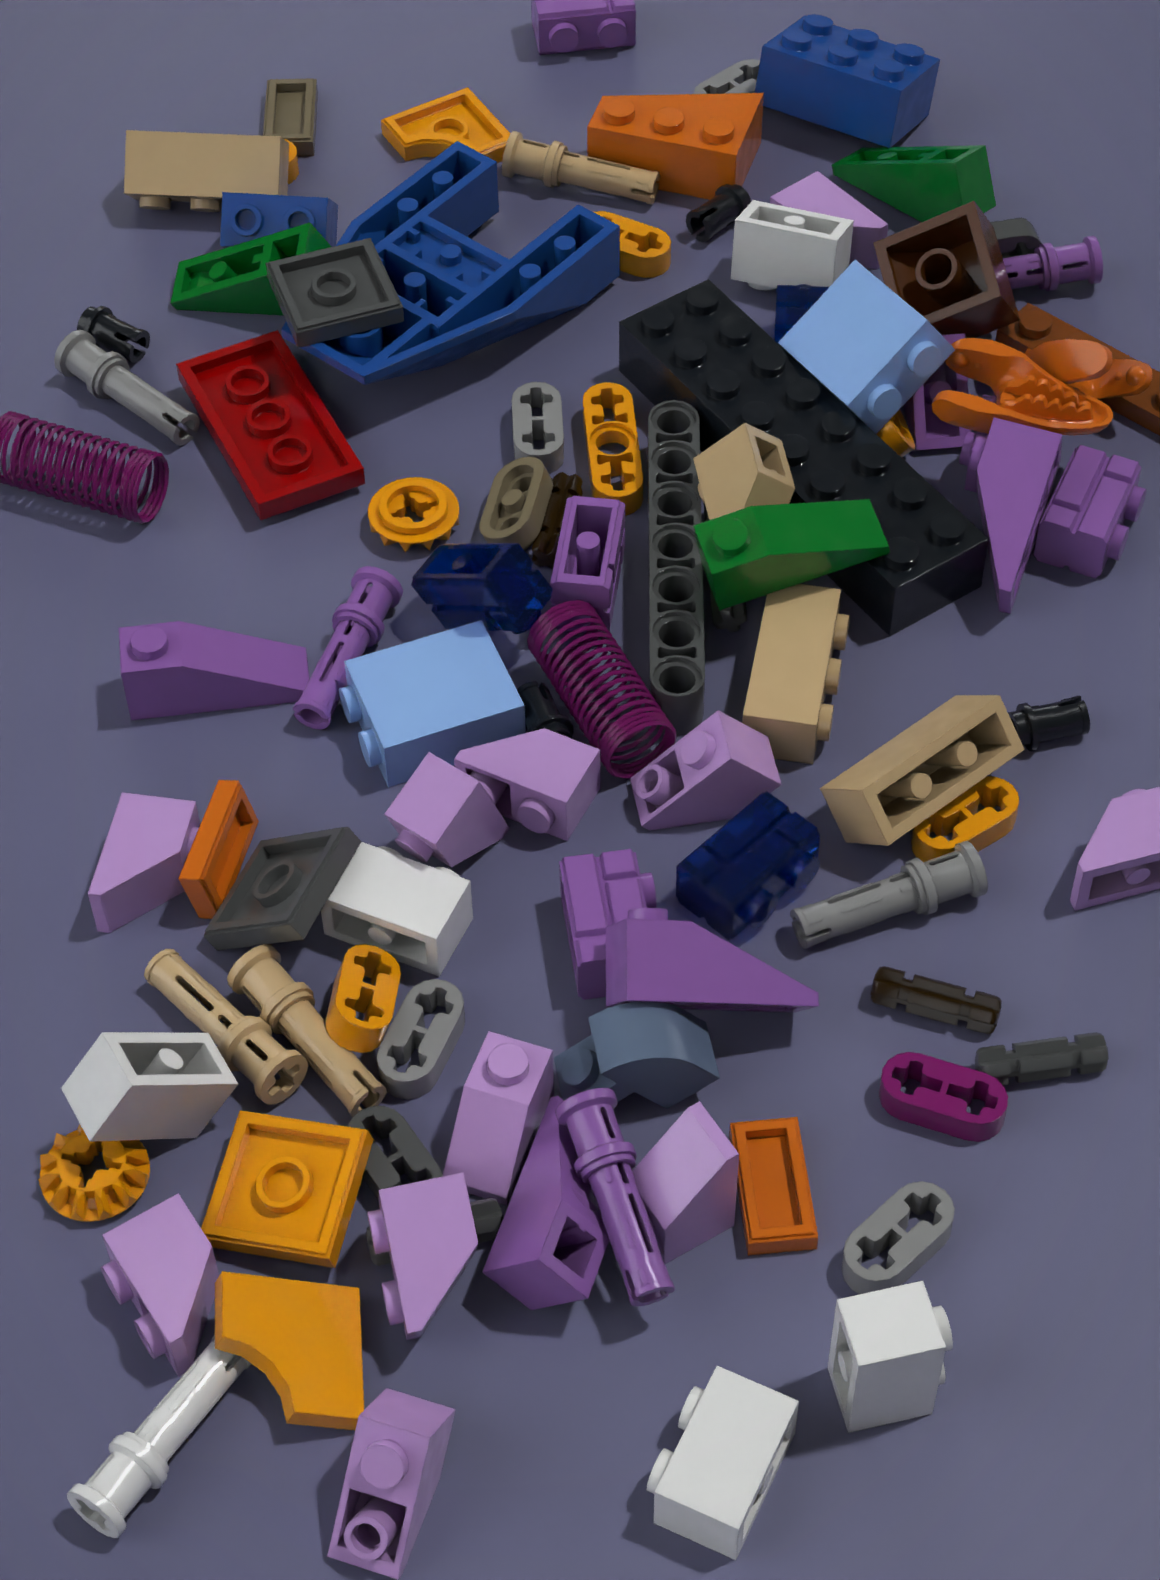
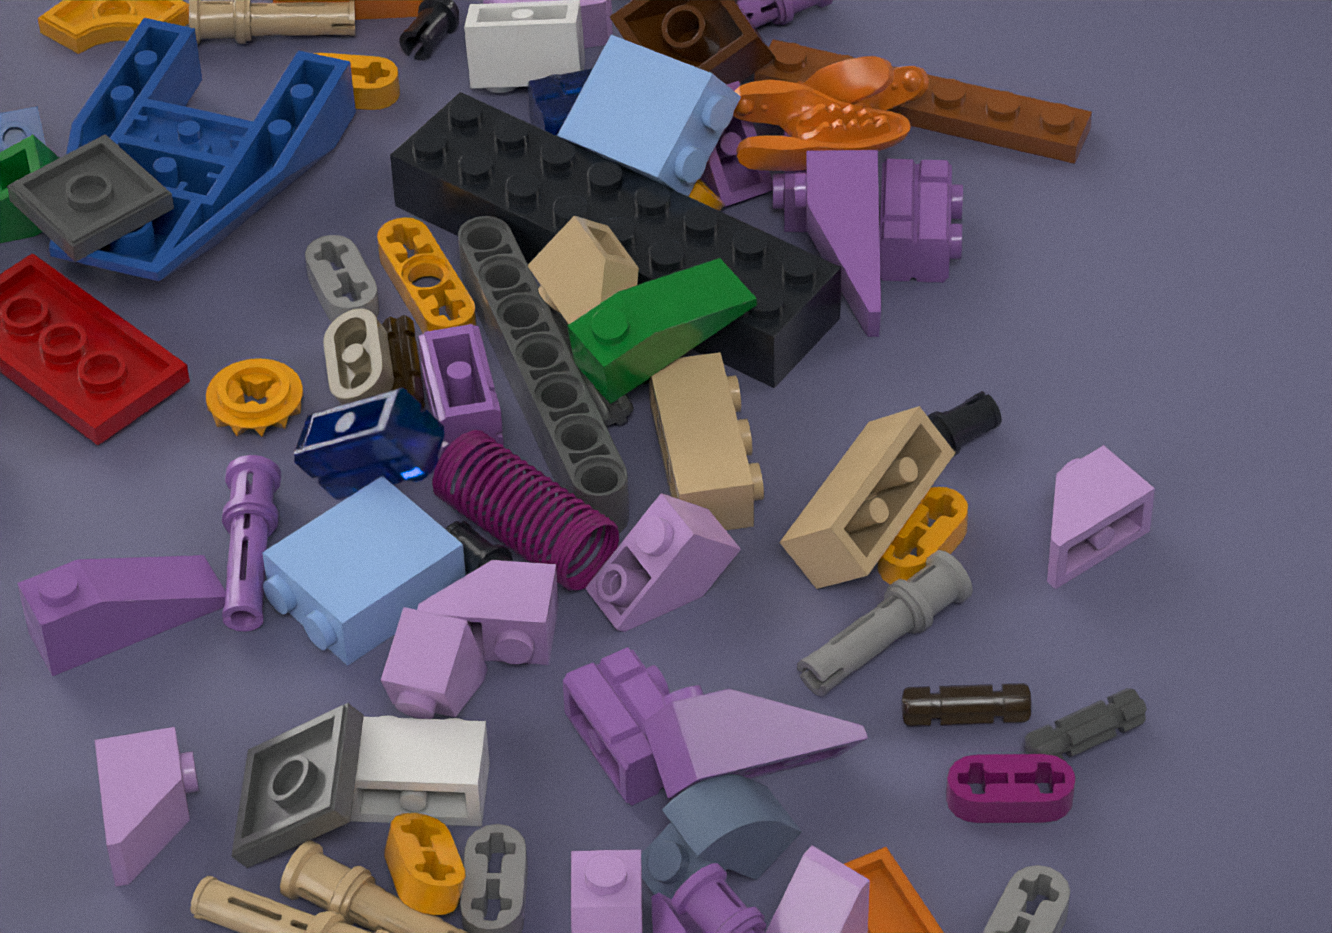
camera: 20 degrees left, 5 degrees down
(218, 848) = (212, 768): orange tile -> none
(749, 866) = (742, 630): clear blue brick -> none

